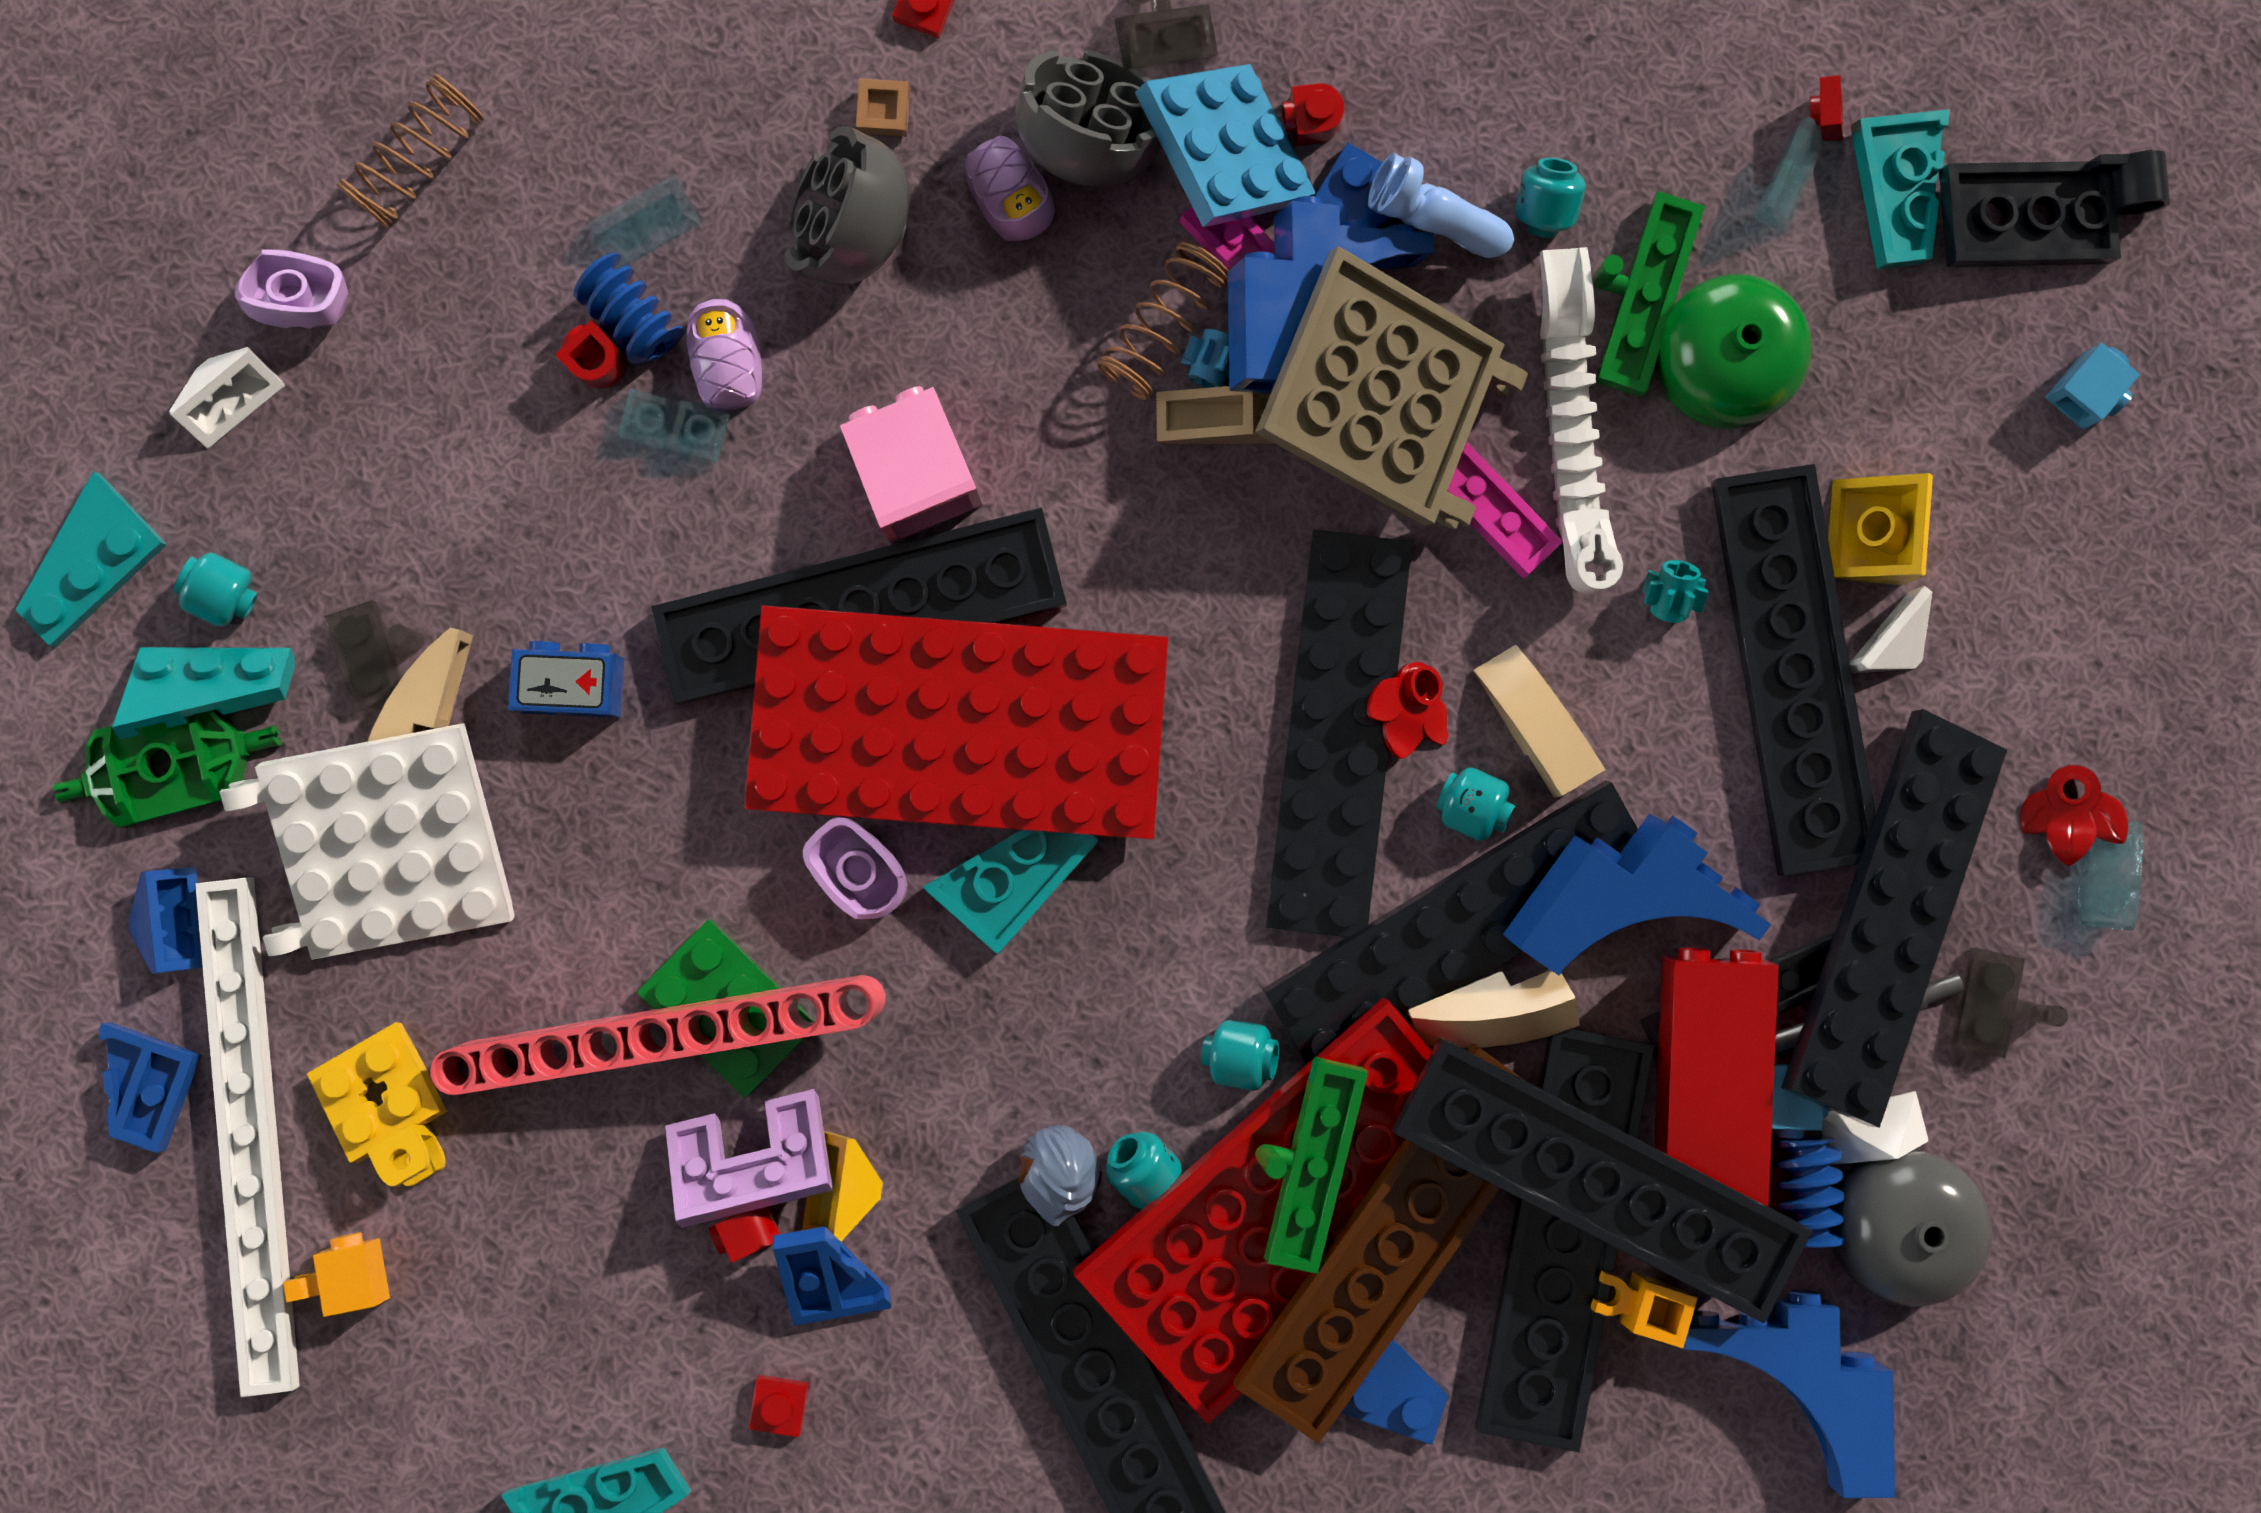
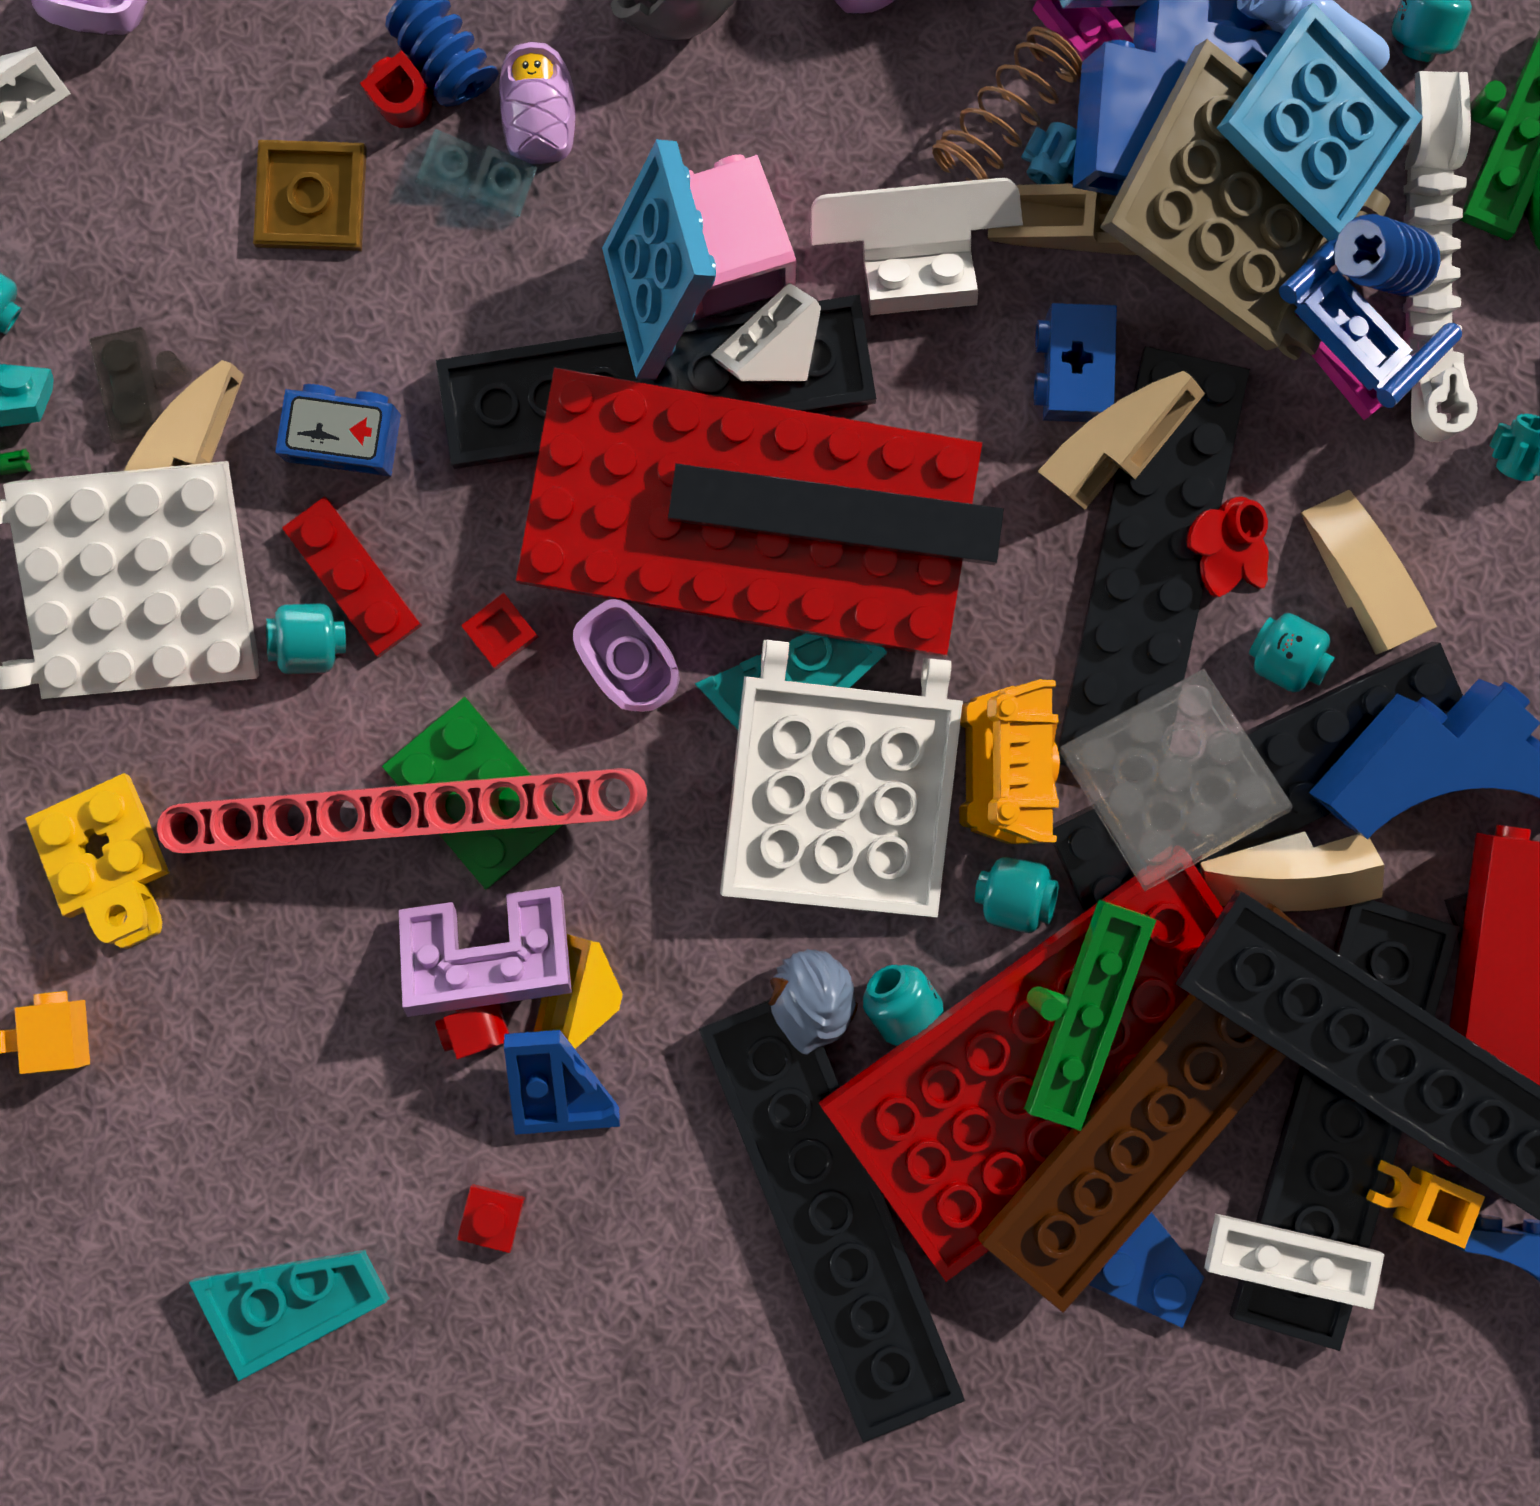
camera: 10 degrees right, 0 degrees up
(519, 460) = (310, 195): none -> pearl gold tile
(552, 880) = (304, 638): none -> teal head
(592, 816) = (351, 576): none -> red plate
(735, 854) = (499, 631): none -> red plate
(848, 499) = (658, 260): none -> dark azure plate
(965, 560) = (774, 341): none -> white slope
(1036, 719) = (835, 514): none -> black tile
(1067, 976) = (841, 792): none -> white plate
(1090, 450) = (917, 238): none -> white plate
(1223, 933) = (1011, 764): none -> light orange piece
(1262, 524) = (1092, 336): none -> blue brick
(1296, 621) = (1121, 437): none -> tan slope
(1375, 936) = (1175, 779): none -> clear plate
(1452, 311) = (1320, 122): none -> dark azure plate
(1502, 499) = (1358, 332): none -> blue plate
(1526, 428) = (1387, 255): none -> blue piece
(1528, 1374) = (1294, 1261): none -> white plate

